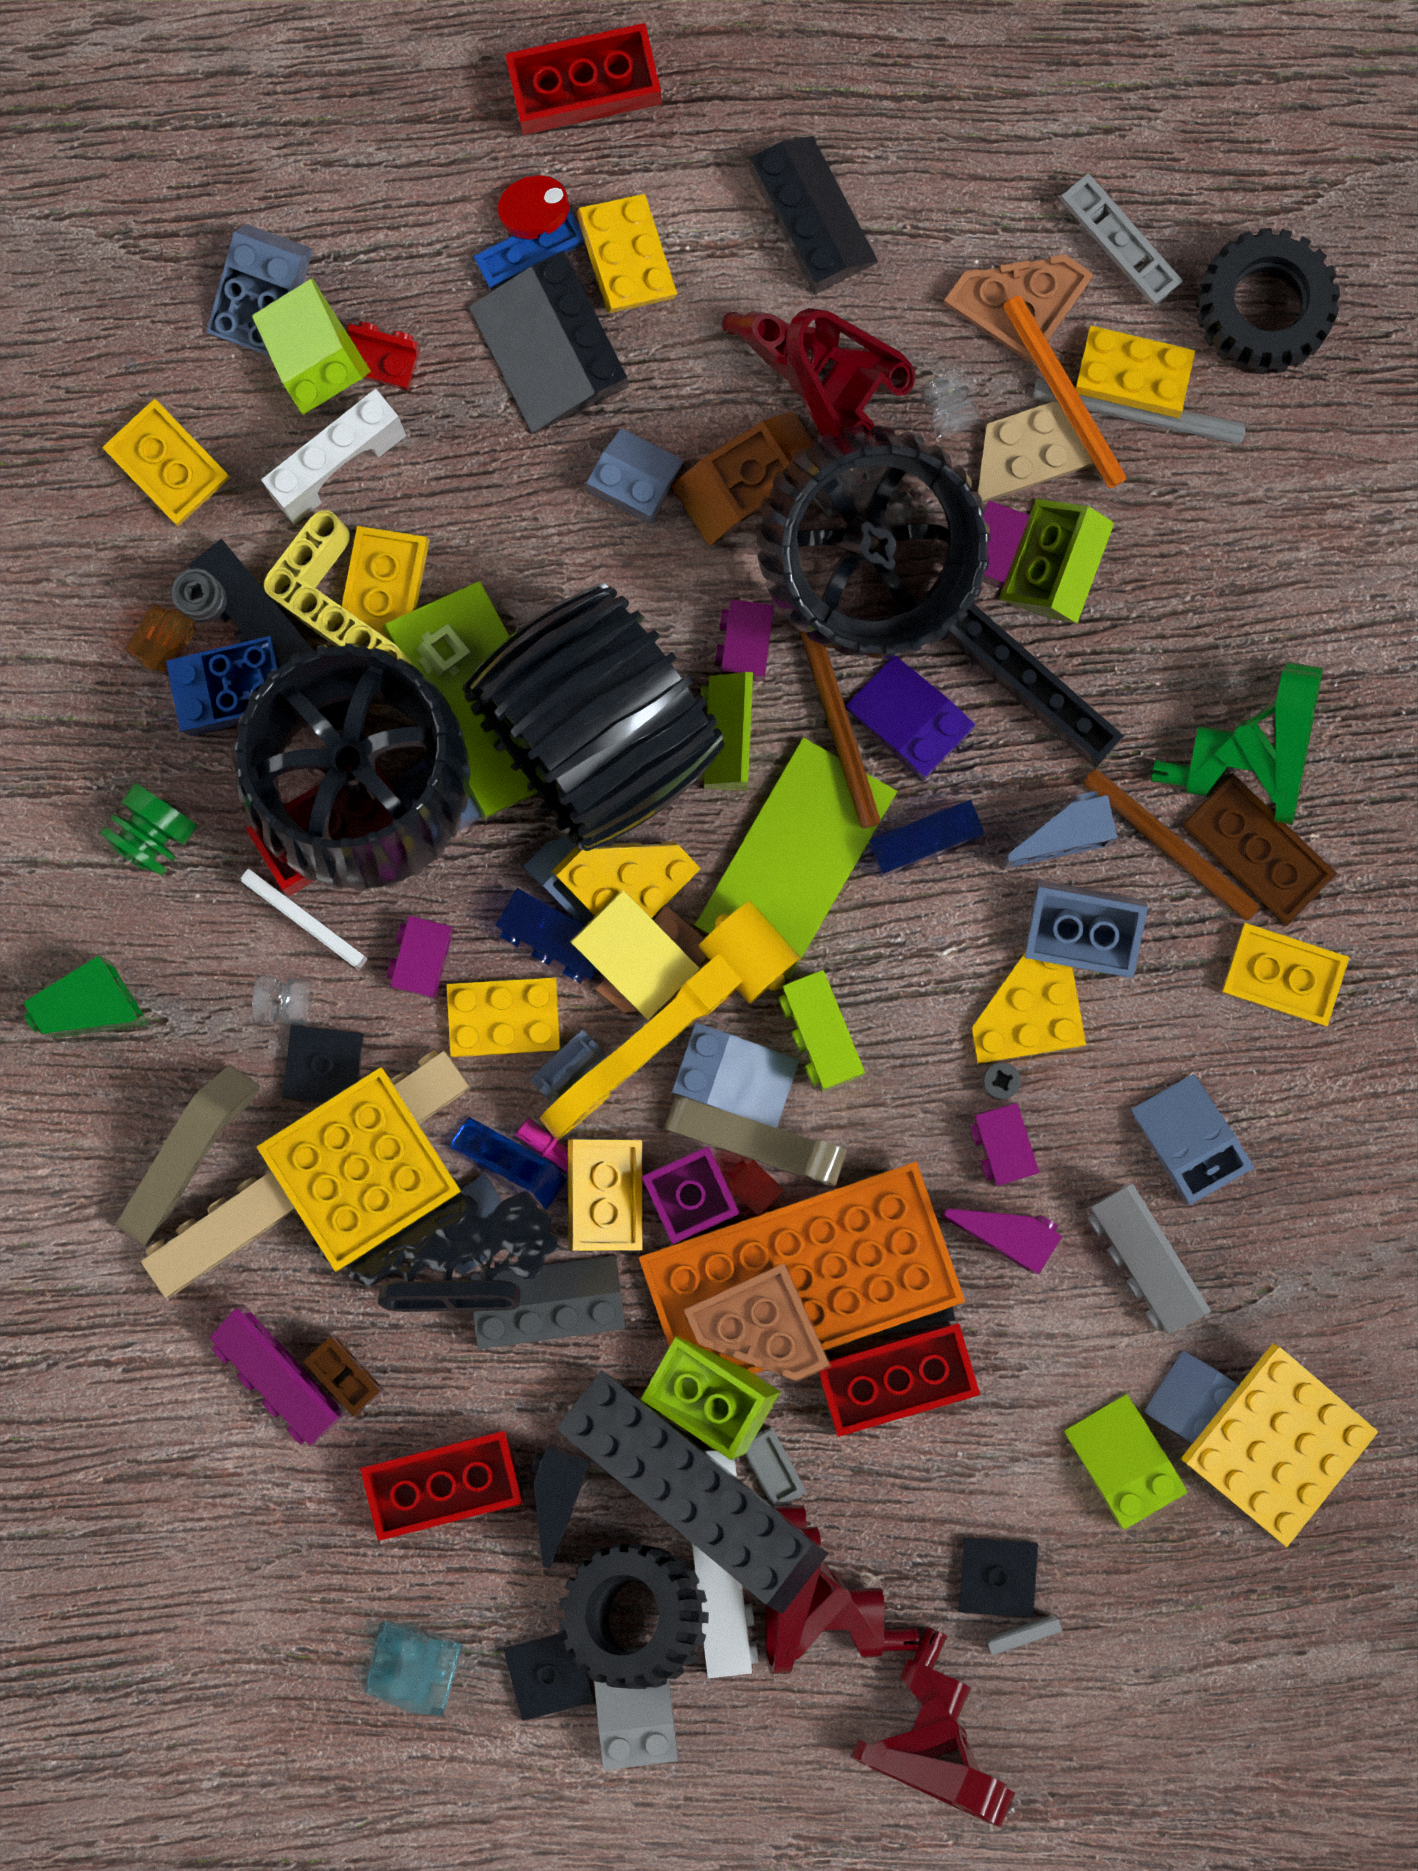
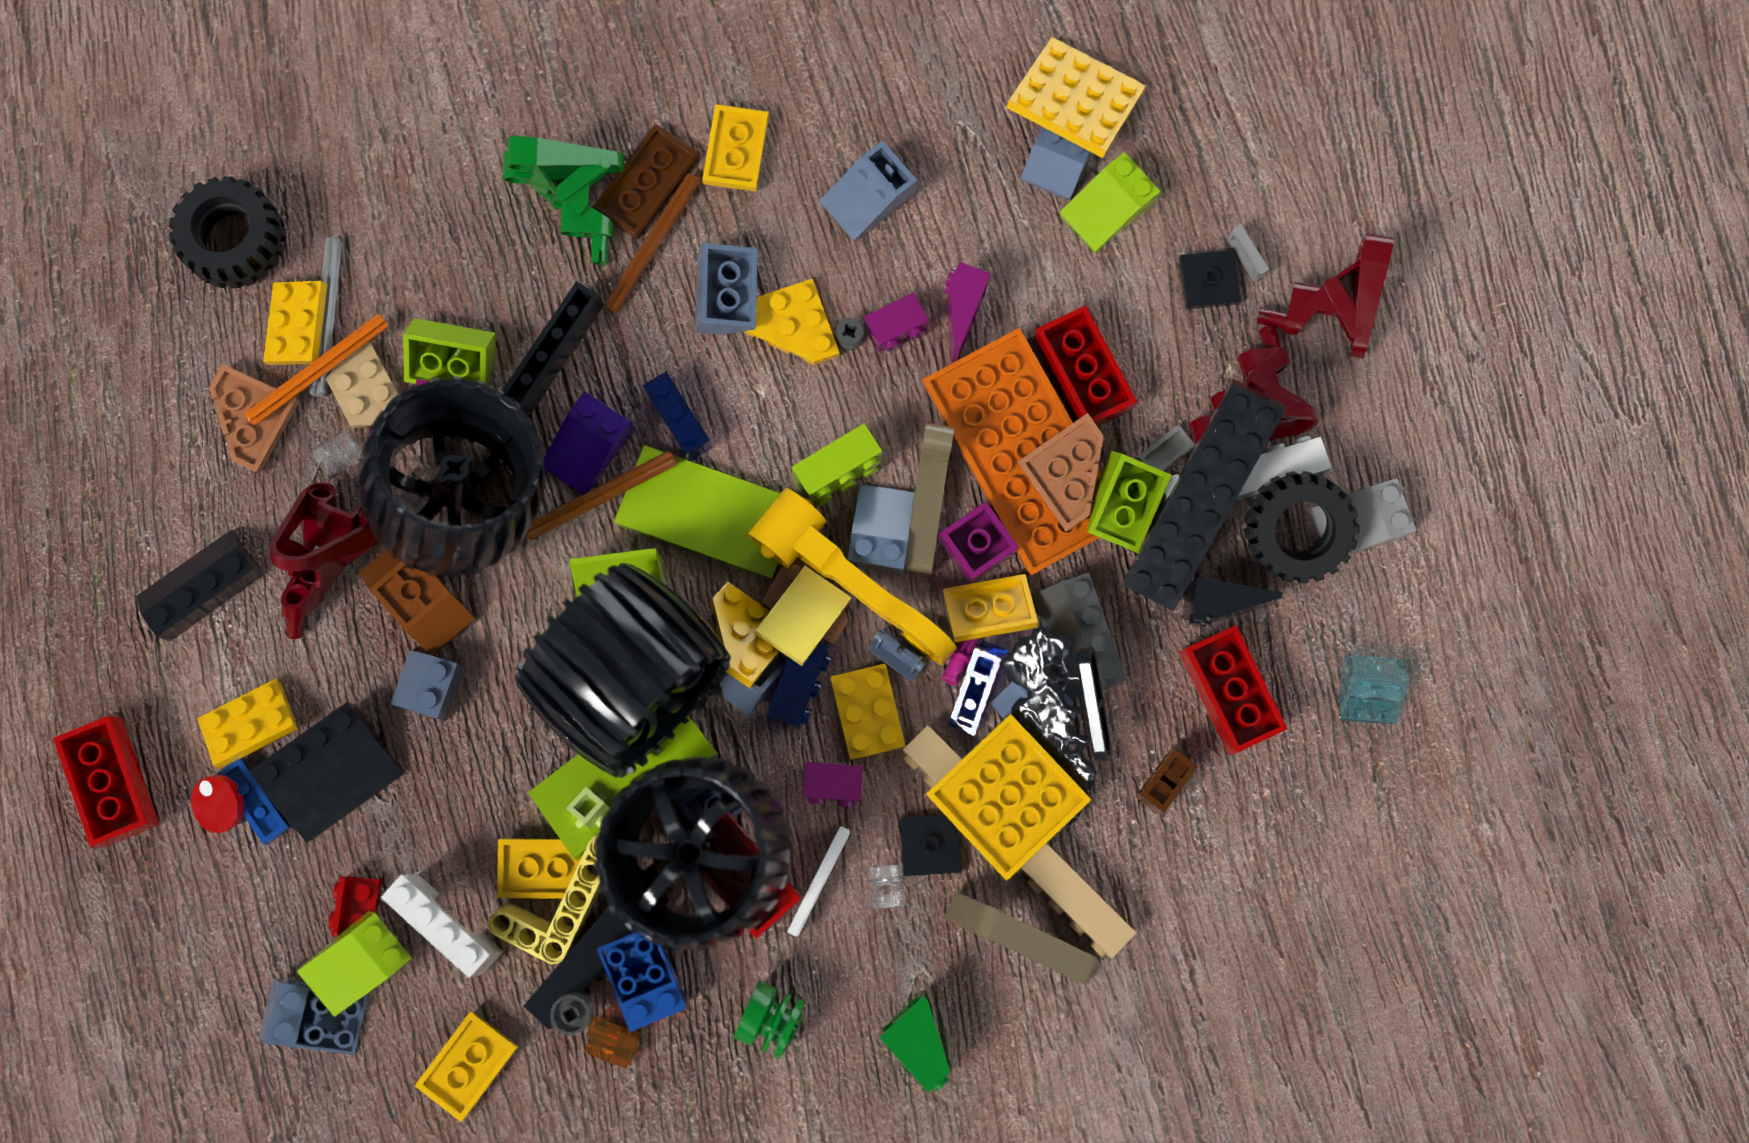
camera: 110 degrees left, 5 degrees down
(276, 1375) = (1177, 833): magenta slope -> none
(546, 1677) = (1353, 589): black plate -> none
(746, 638) = (543, 577): magenta brick -> none
(754, 1186) = (961, 498): clear red brick -> none
(1076, 829) = (648, 301): sand blue slope -> none
(1121, 239) = (192, 347): light grey hinge -> none
(1148, 1259) = (961, 207): light grey slope -> none

